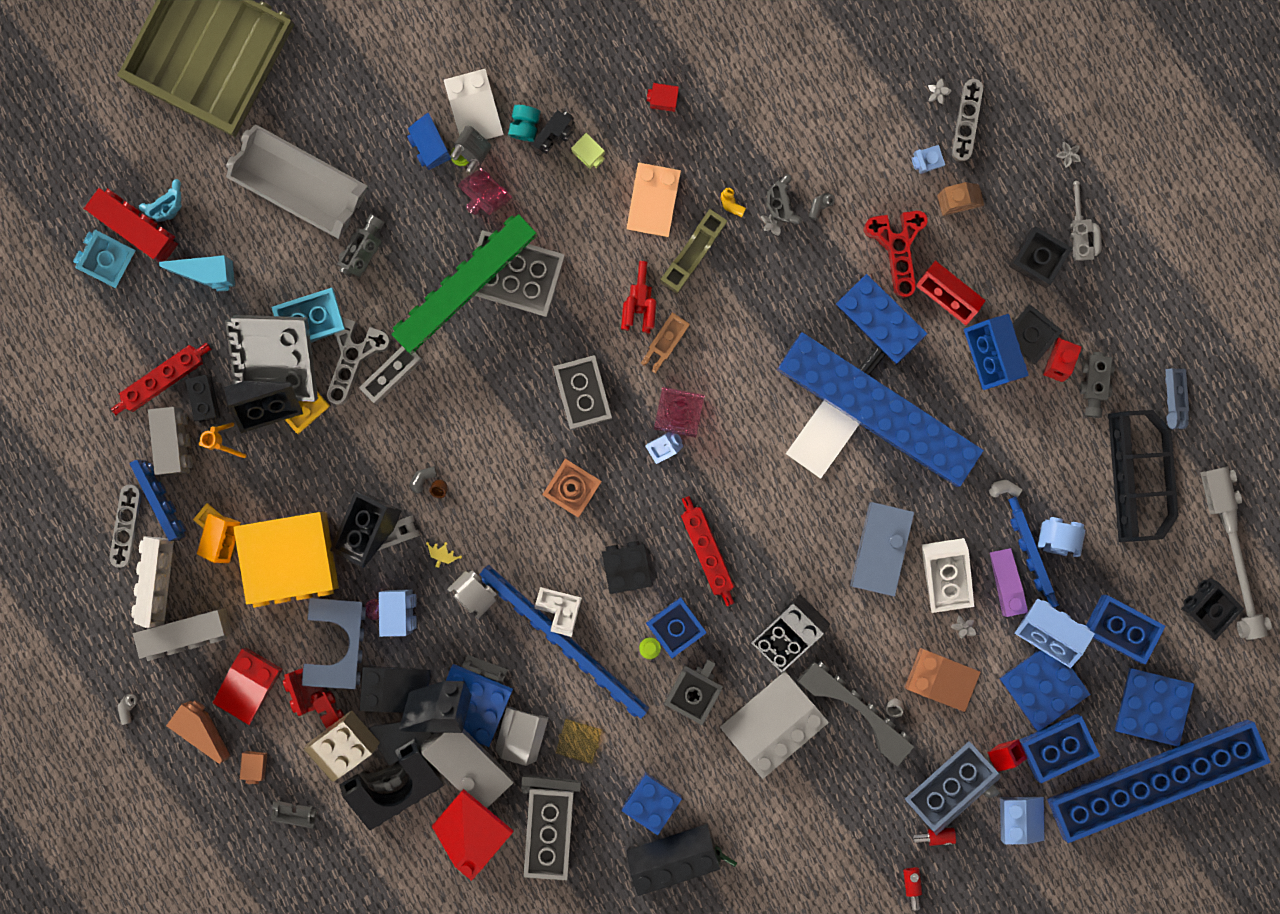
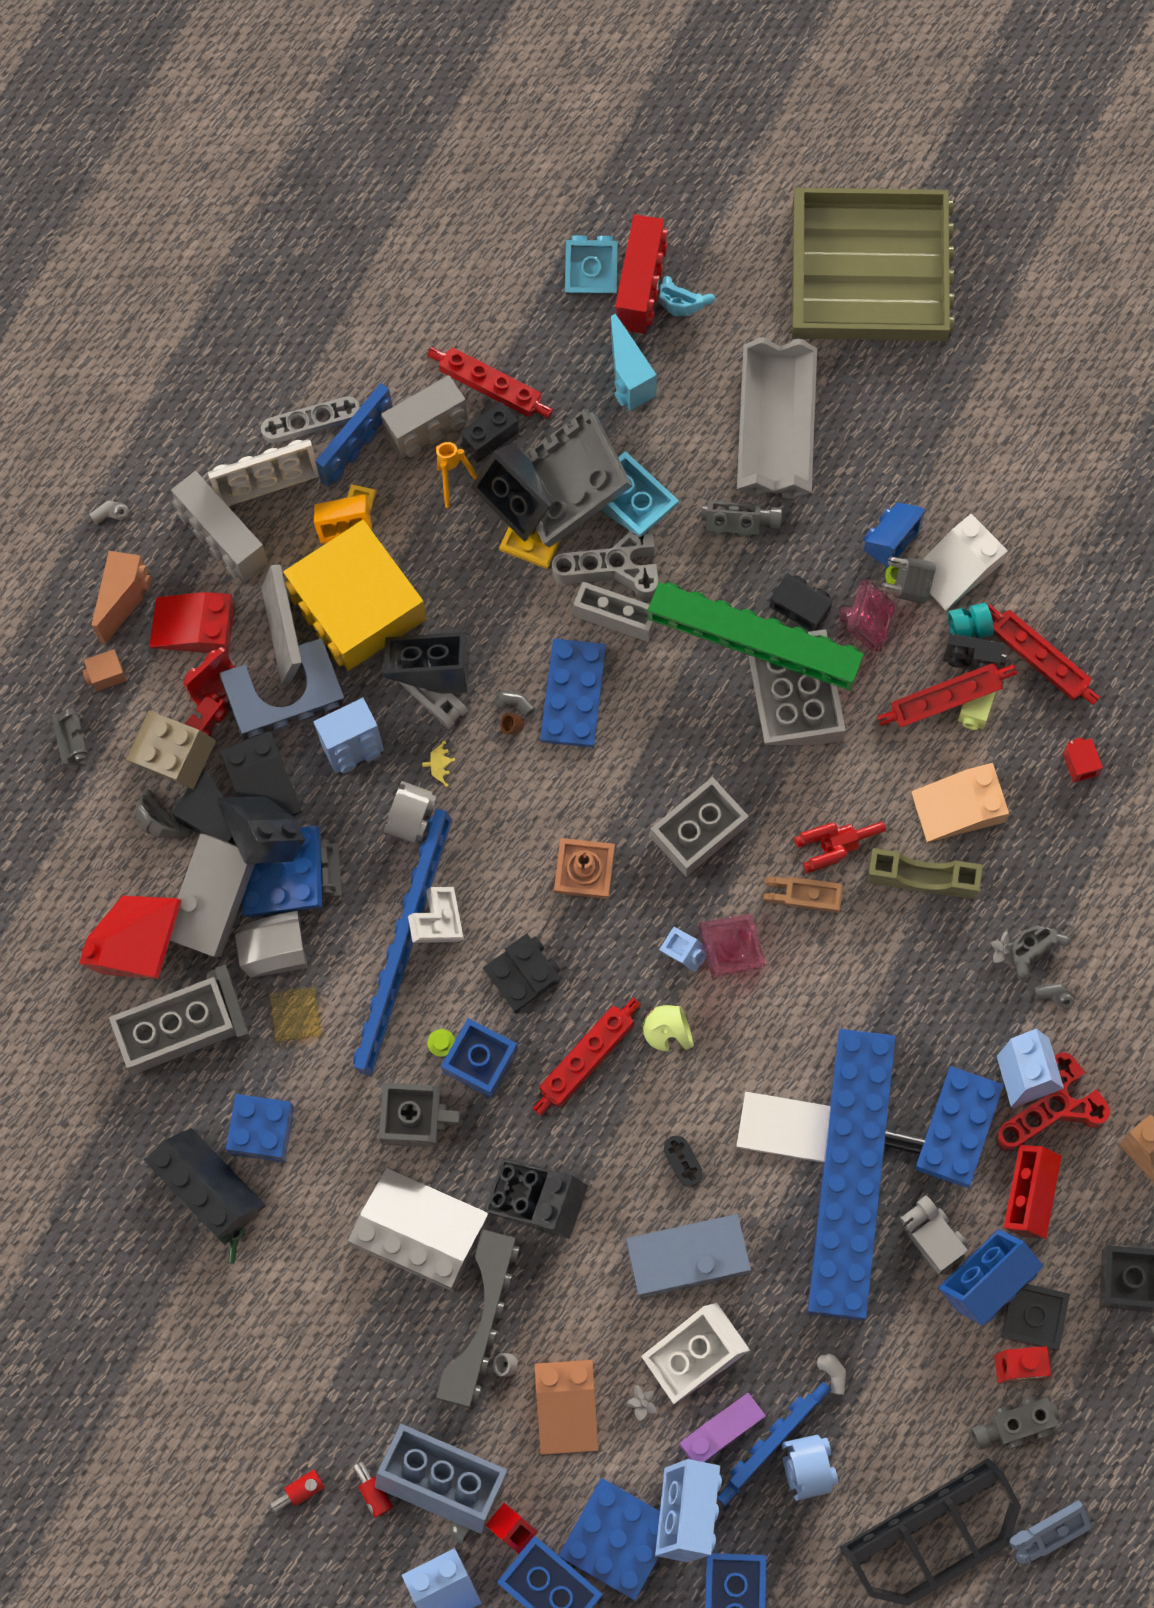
camera: 70 degrees right, 15 degrees down
(282, 622) = (281, 624): none -> light grey tile
(377, 808) = (115, 821): black arch -> none
(435, 433) = (573, 693): none -> blue plate
(448, 235) = (801, 602): none -> black hinge
(572, 84) = (1042, 655): none -> red plate
(573, 168) = (947, 695): none -> red plate
(714, 486) = (664, 1023): none -> yellowish green helmet
(729, 203) = (1001, 891): yellow arm -> none
(813, 525) = (676, 1163): none -> black beam
(867, 251) = (1029, 1068): none -> light blue slope
(947, 375) = (933, 1235): none -> light grey hinge

